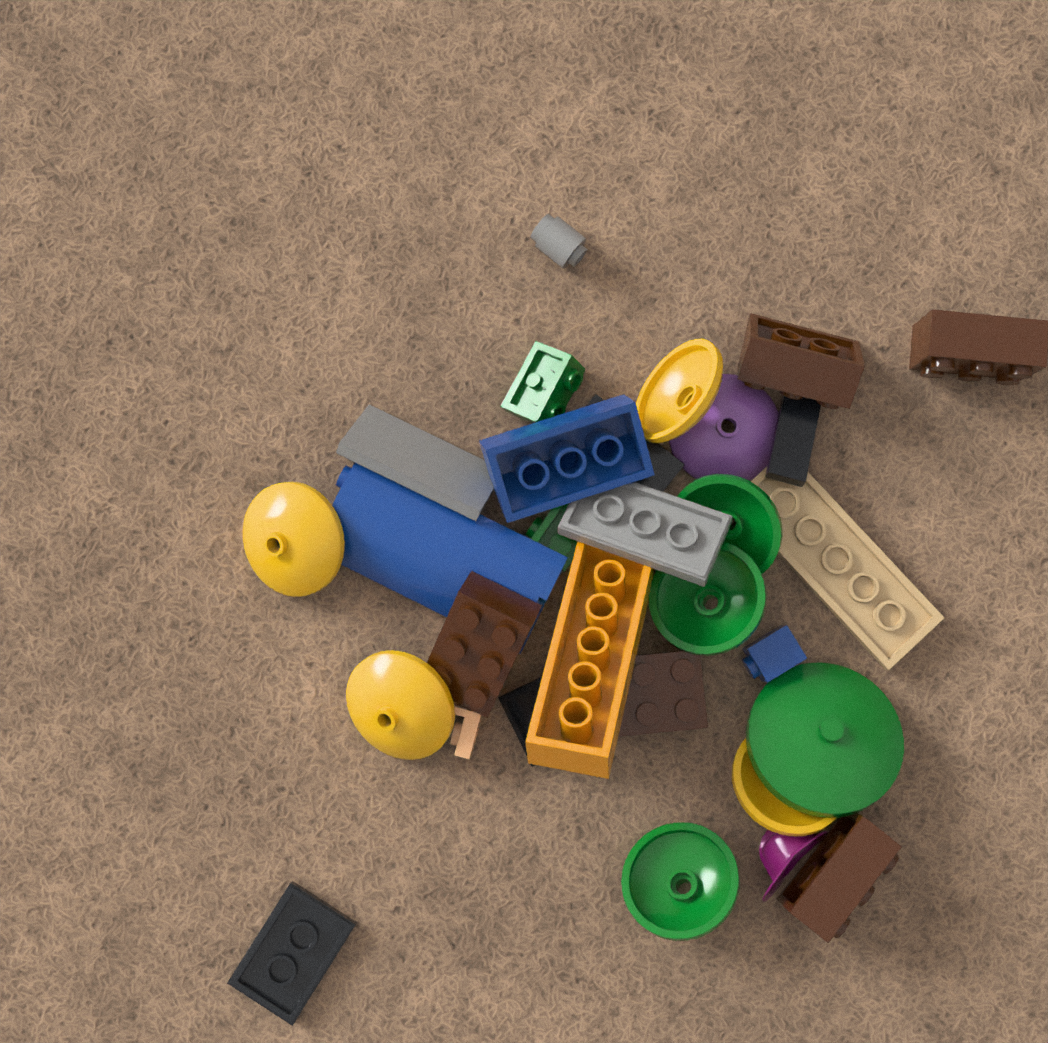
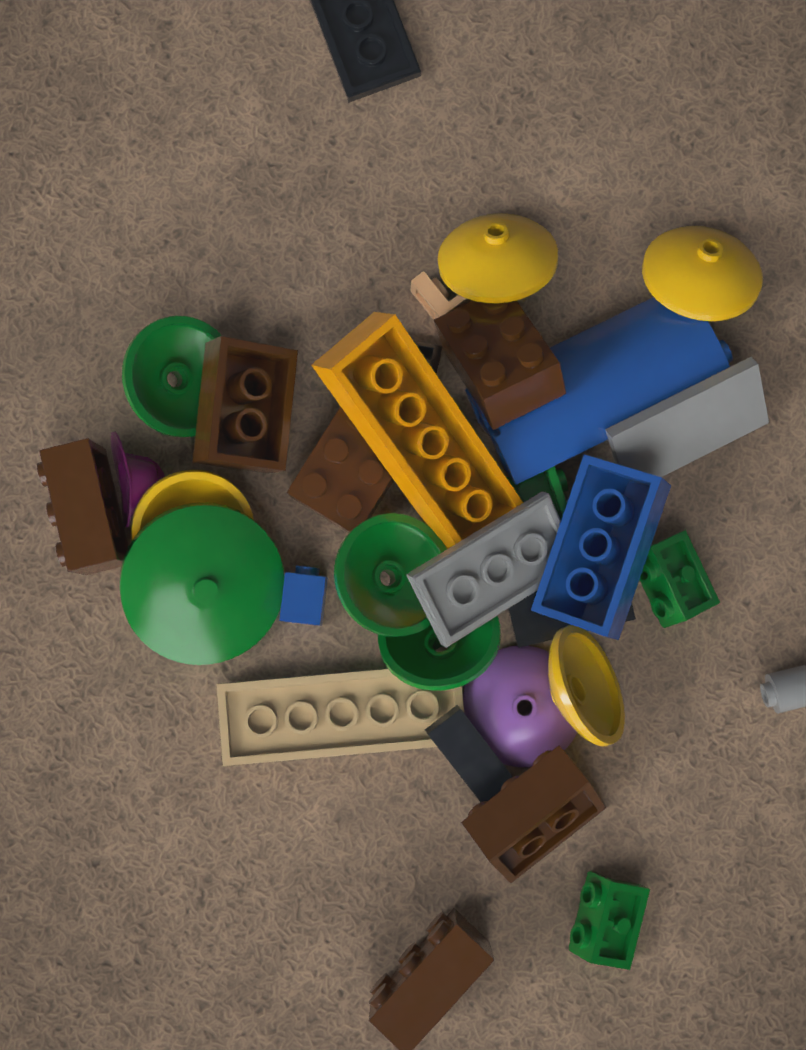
camera: 130 degrees right, 0 degrees up
(666, 811) = (245, 405): none -> reddish brown brick
(832, 250) = (608, 921): none -> green bracket

